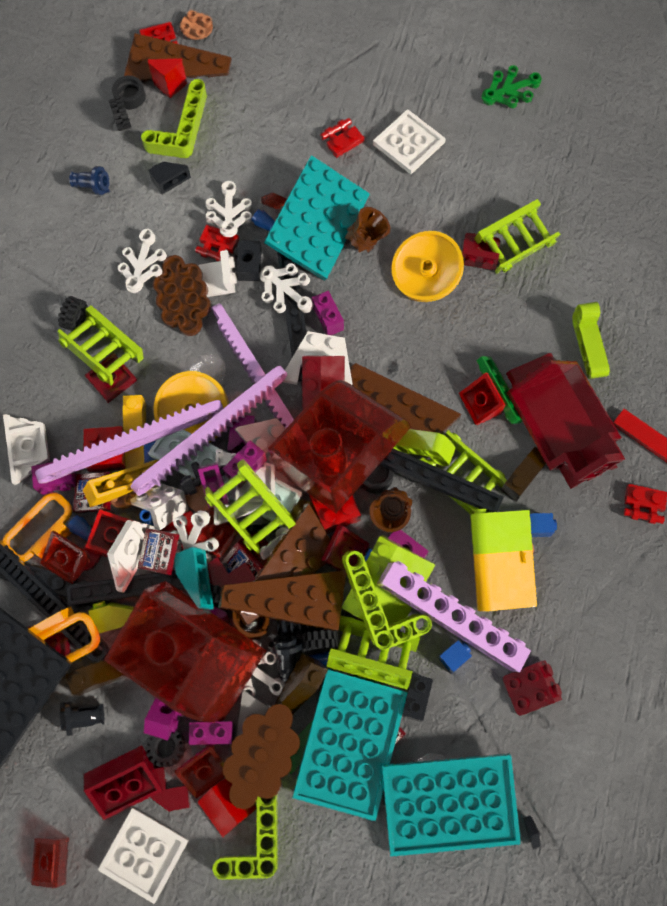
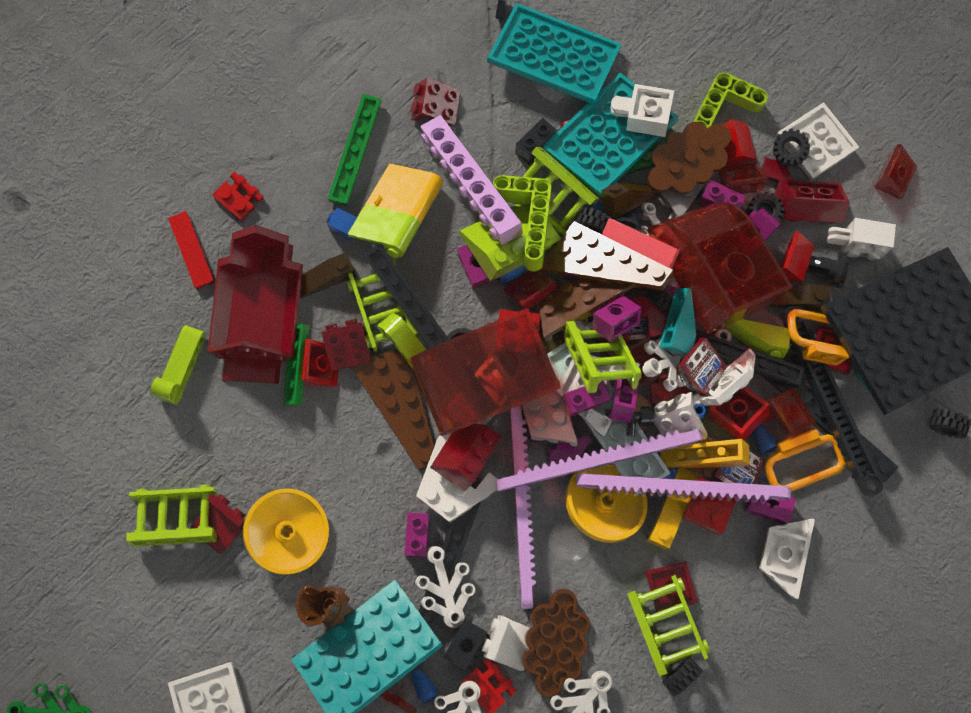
camera: 155 degrees left, 5 degrees up
(55, 764) = (864, 238): none -> white brick
(115, 706) = (797, 257): none -> red slope
(159, 813) = (791, 160): none -> black tyre
(253, 535) = (616, 318): none -> magenta brick
(264, 629) = (641, 243): none -> coral tile
(327, 777) = (646, 110): none -> white brick
(391, 510) = (469, 298): reddish brown hat -> none
(455, 656) = (486, 156): blue brick -> none
(473, 425) = (345, 344): none -> dark red bracket
(575, 601) = (354, 150): none -> green plate

